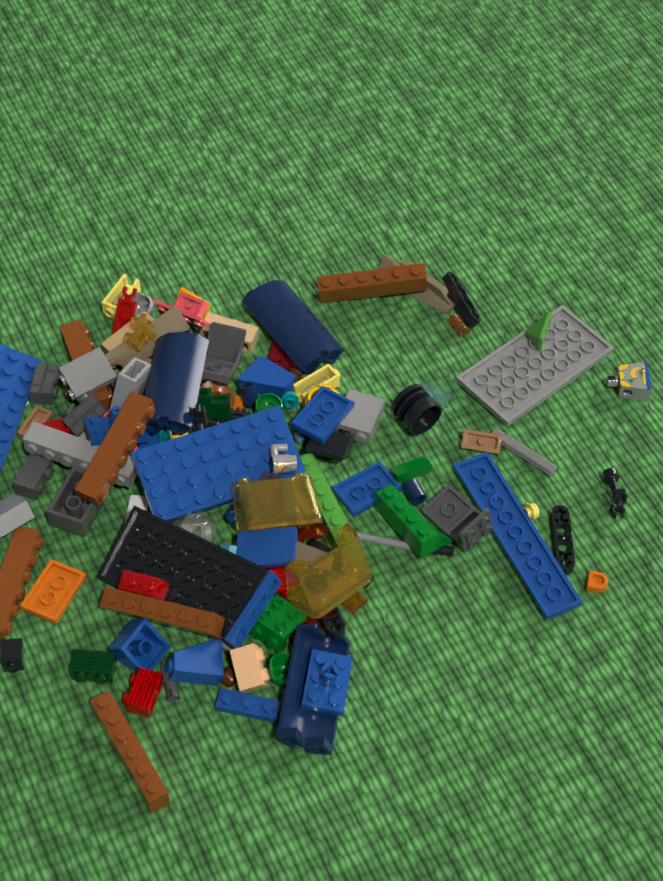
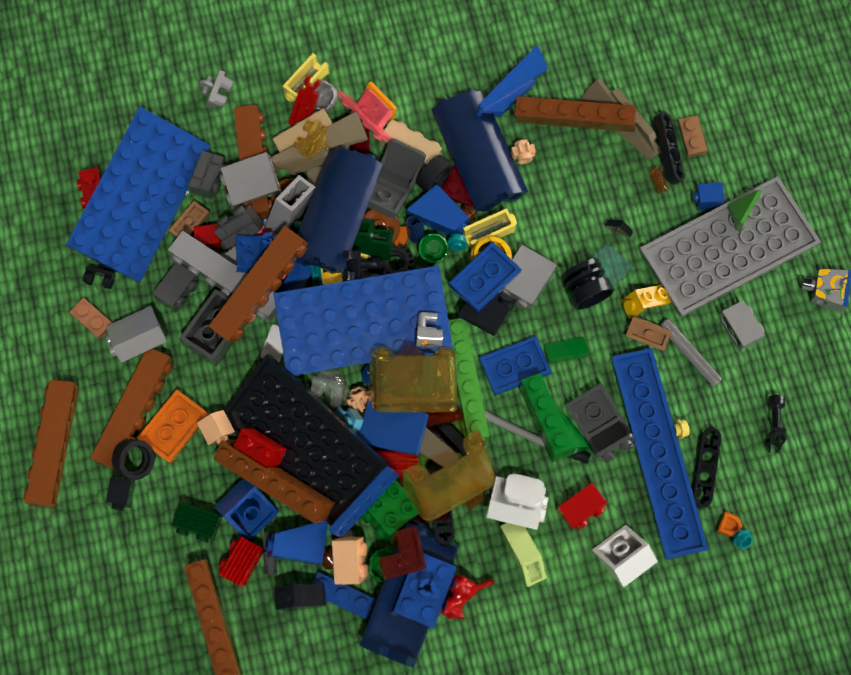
camera: 15 degrees right, 20 degrees up
(33, 619) = (119, 455): none -> black tyre
(39, 324) = (221, 82): none -> light grey hips
(94, 581) = (216, 427): none -> light nougat brick
(207, 709) = (299, 597): none -> black slope
(227, 535) = (358, 398): none -> light nougat gear
(256, 344) = (434, 173): none -> black tyre
(306, 649) = (409, 558): none -> clear red plate
(316, 265) = (515, 84): none -> blue wedge
(332, 320) = (523, 151): none -> light nougat gear
(362, 677) = (461, 592): none -> red animal
(397, 589) = (518, 501): none -> white brick
(413, 634) = (524, 553): none -> yellowish green slope
(414, 492) = (564, 380): dark blue piece -> none
(433, 365) = (619, 227): none -> black tile
(457, 589) = (582, 507): none -> red brick
(468, 414) = (643, 299): none -> yellow bracket
(479, 289) = (692, 136): none -> medium nougat plate
(506, 328) = (708, 196): none -> blue brick
(508, 621) = (625, 555): none -> white slope
(563, 422) = (741, 325): none -> light grey brick
(611, 589) = (742, 539): none -> teal plate

